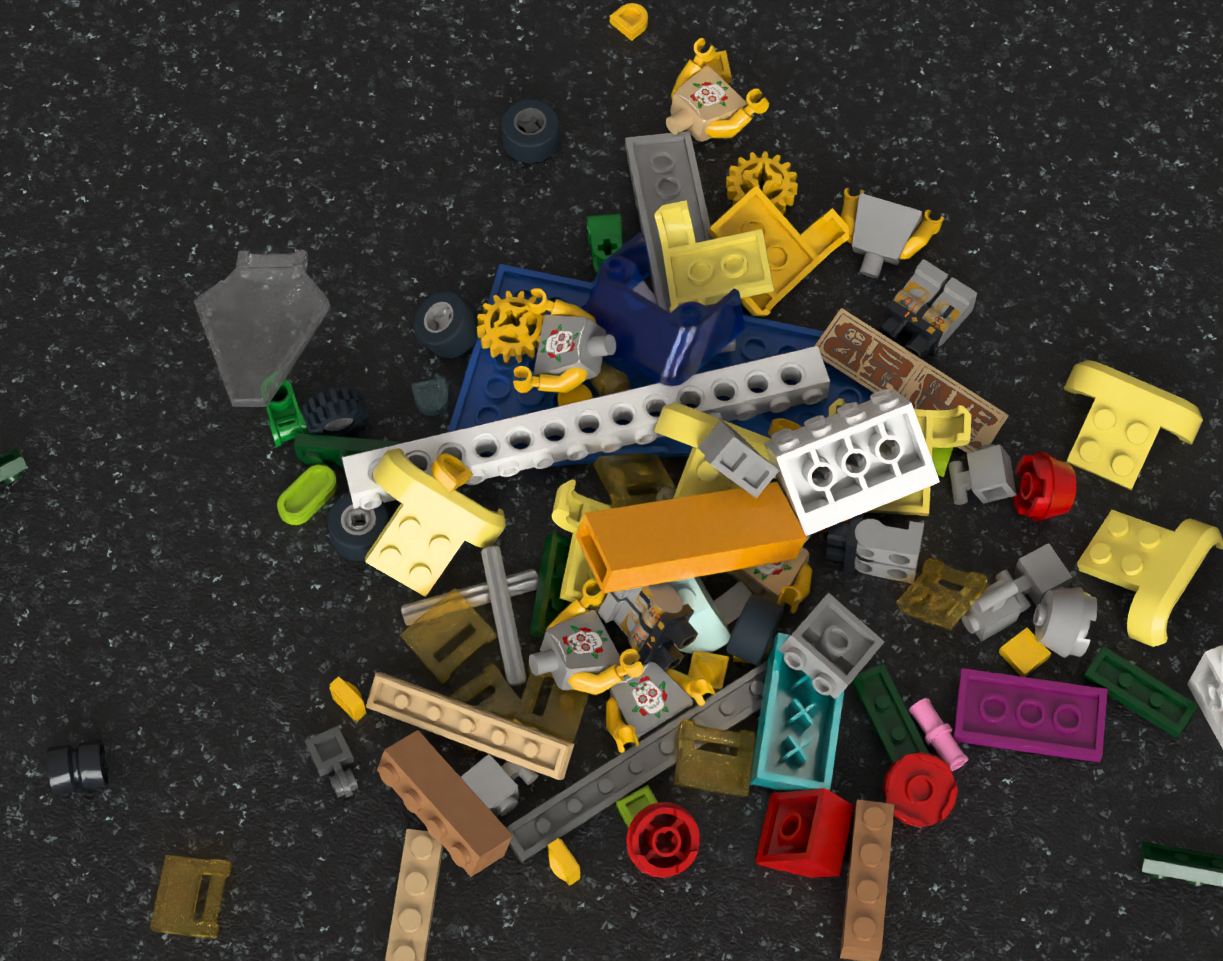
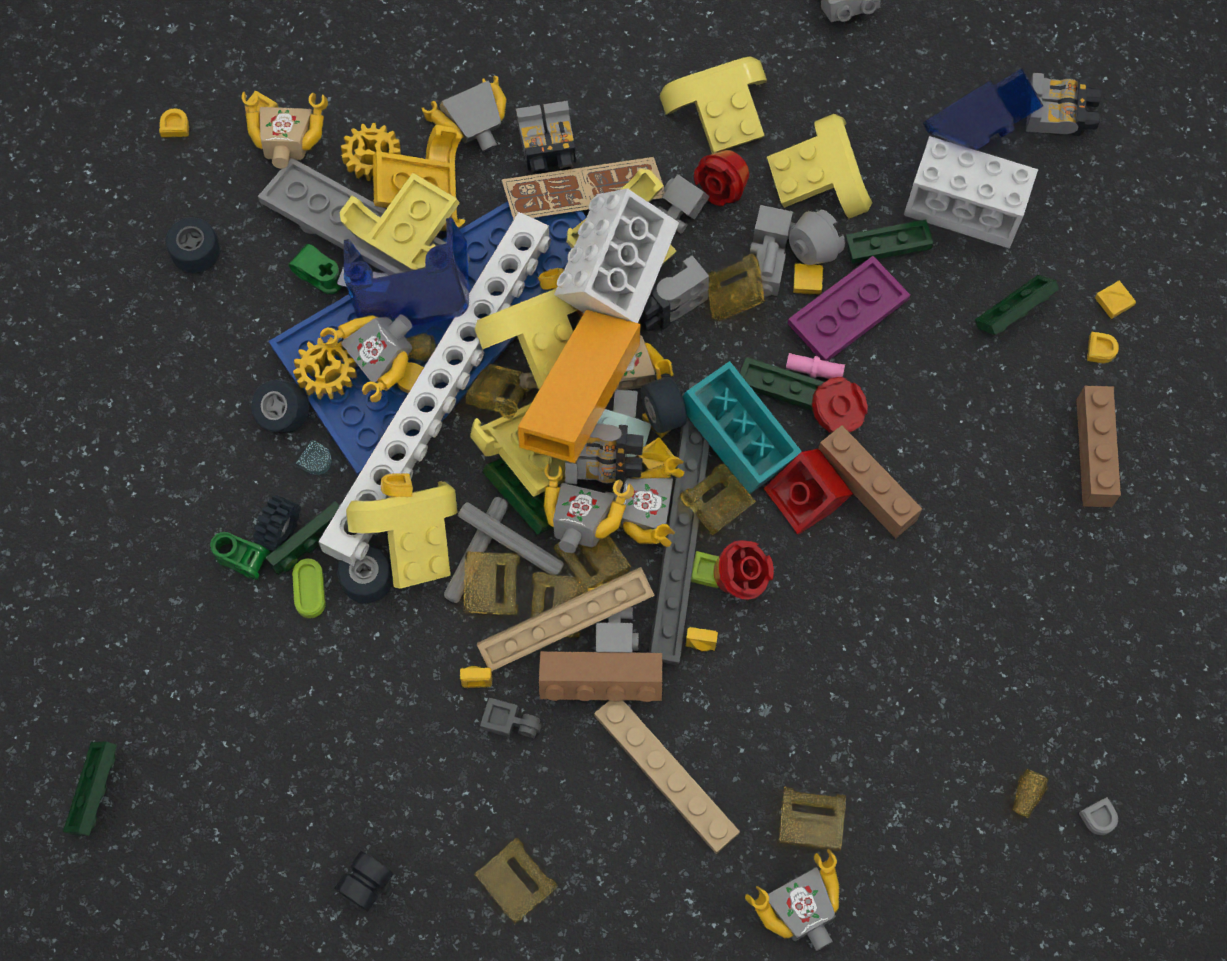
camera: 50 degrees left, 5 degrees up
(261, 323) = (165, 514): clear windscreen -> none
(737, 459) = (557, 315): light grey tile -> none
(830, 647) = (725, 370): light grey plate -> none

